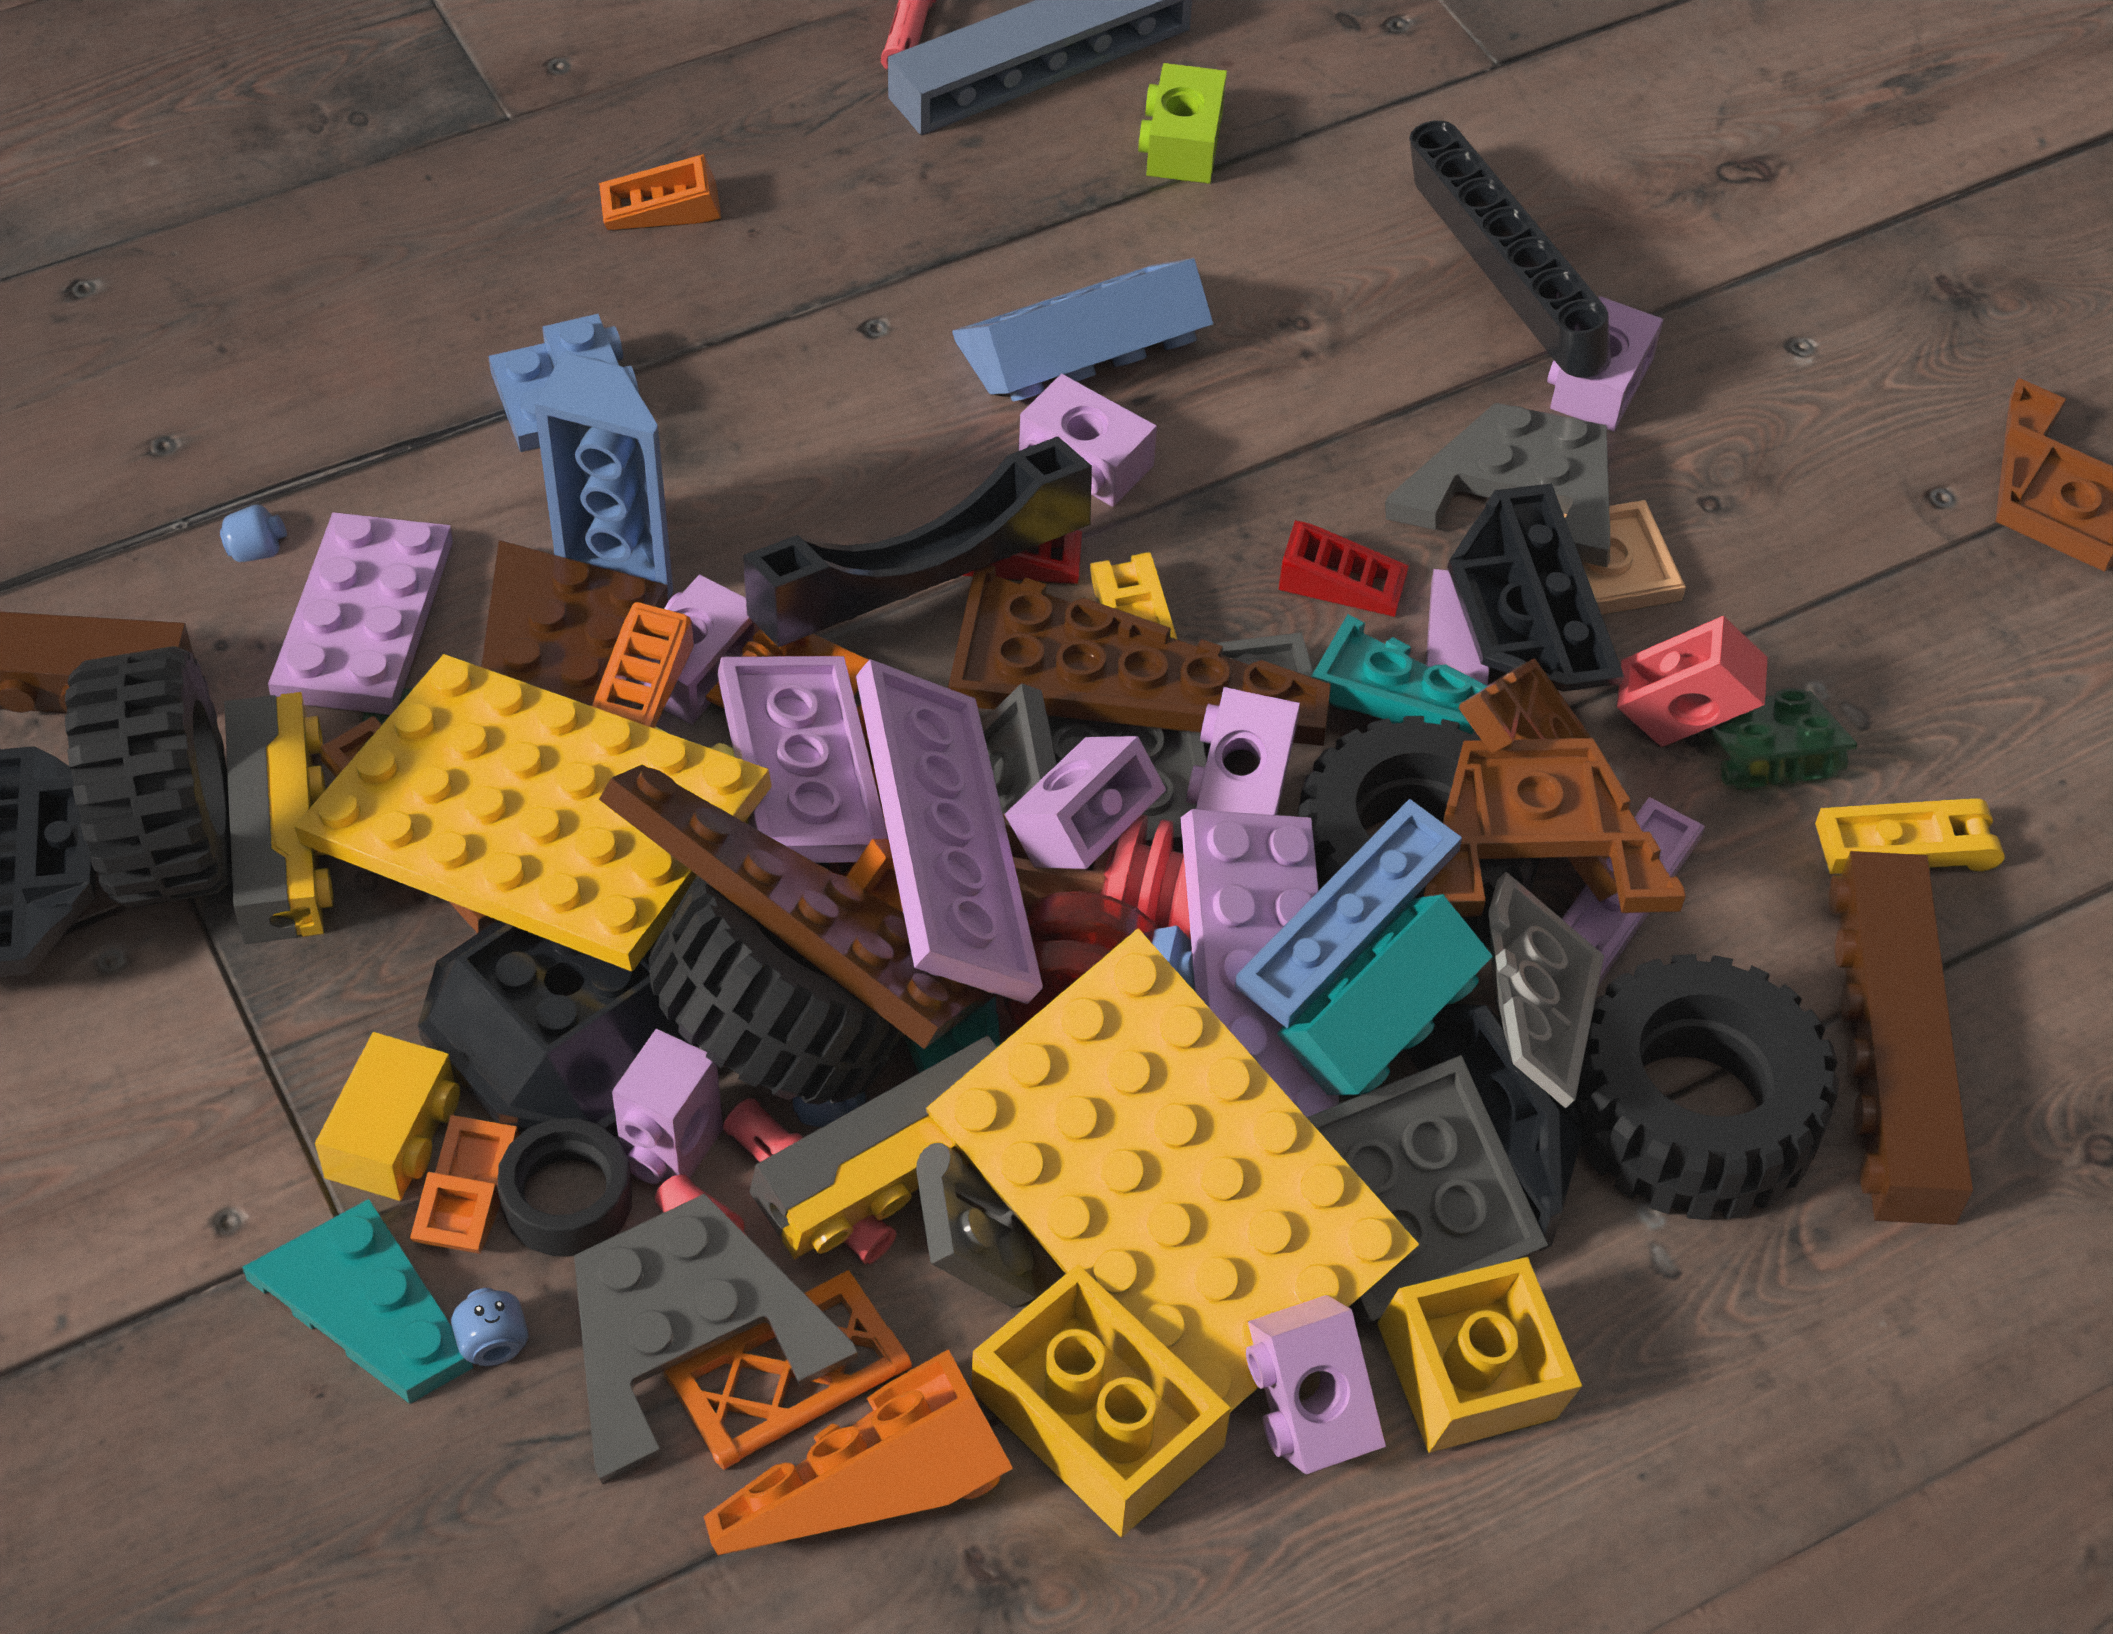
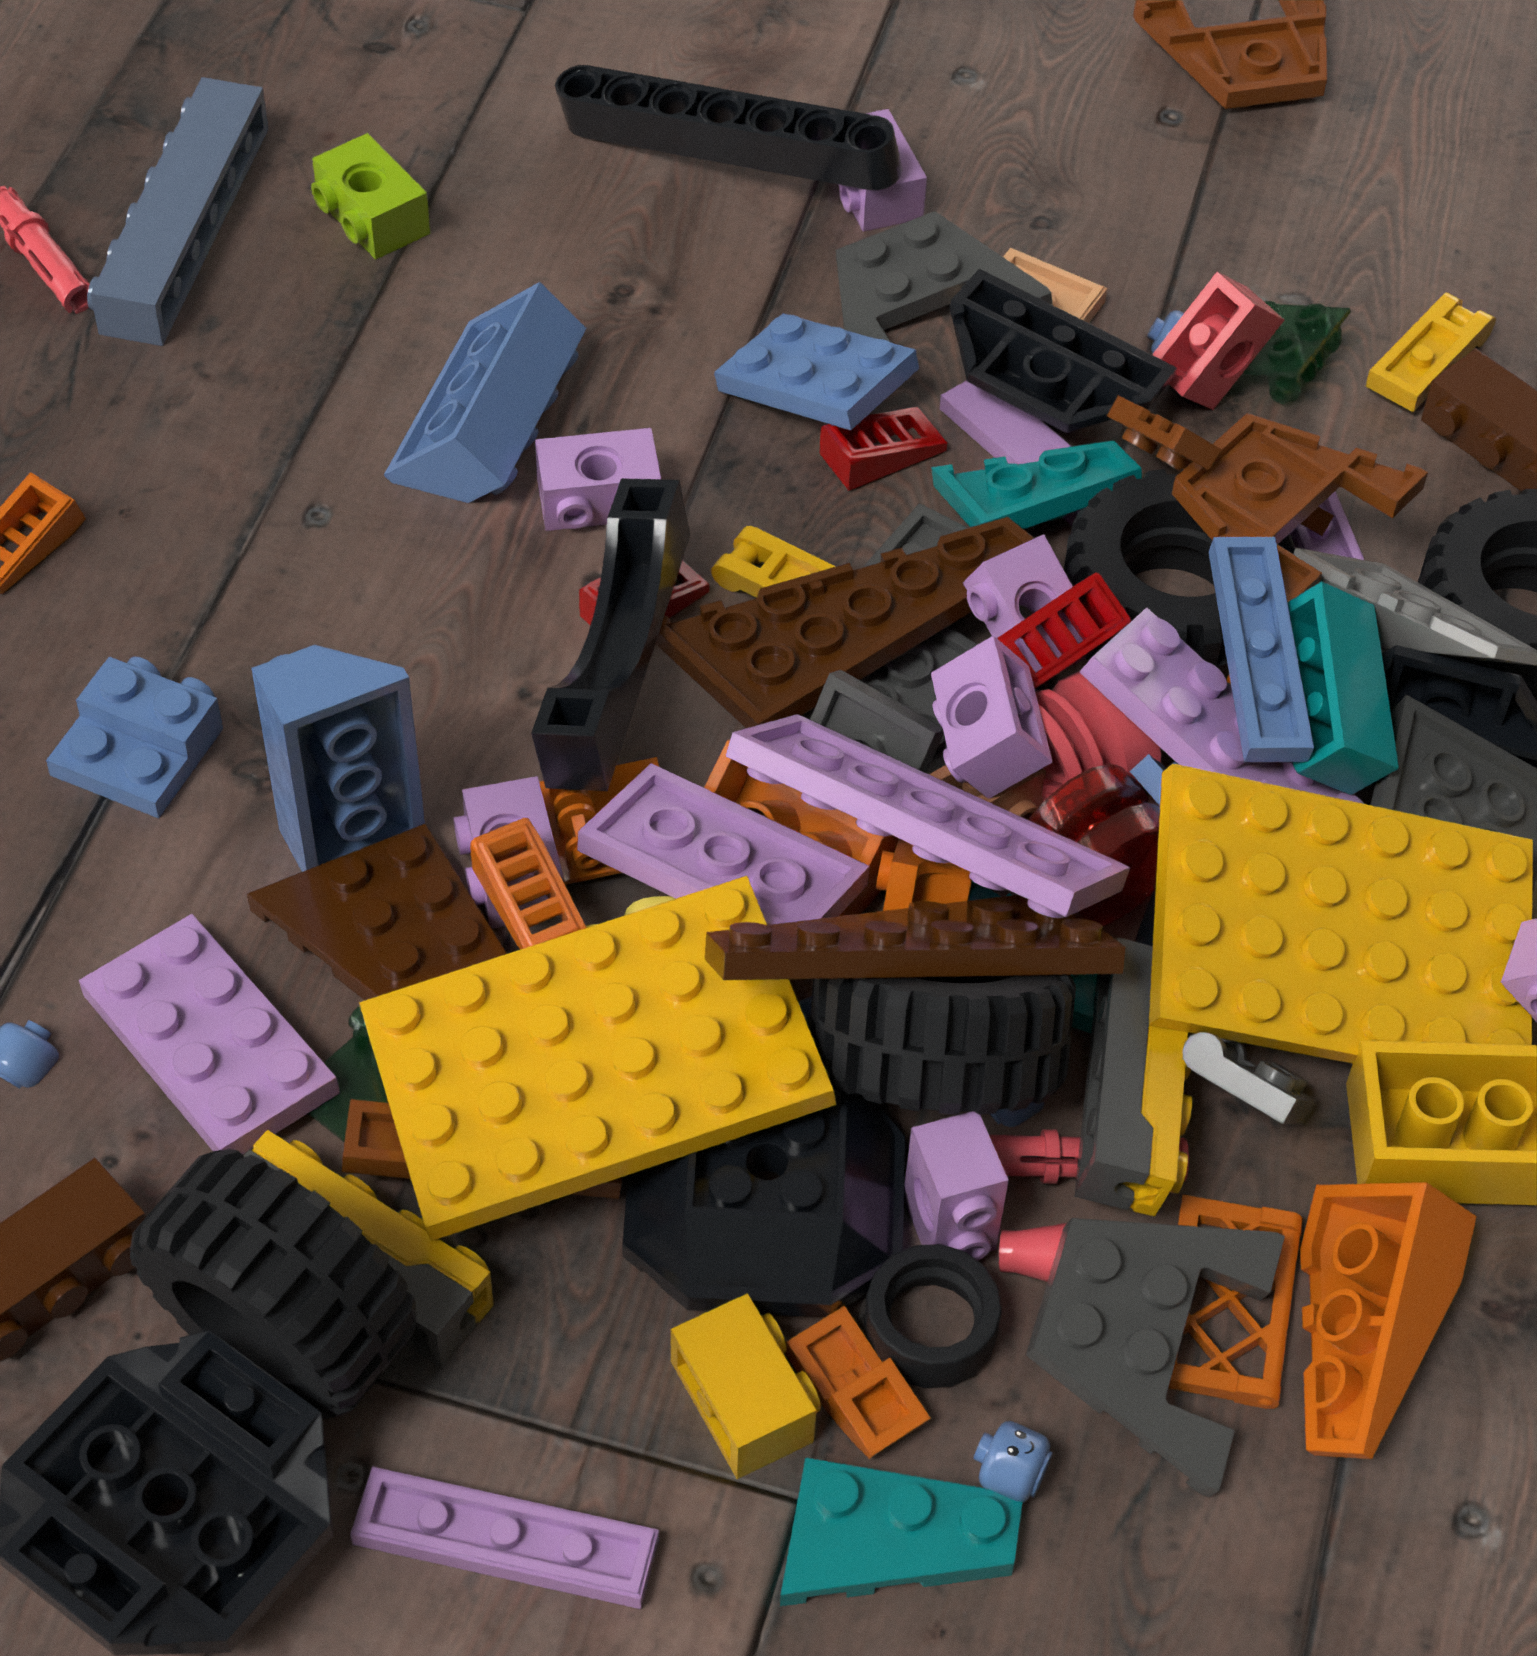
camera: 45 degrees left, 0 degrees up
(143, 1080) = (505, 1537): none -> lavender tile
(1224, 764) = (1091, 611): none -> red slope
(1350, 478) = (817, 371): none -> medium blue plate

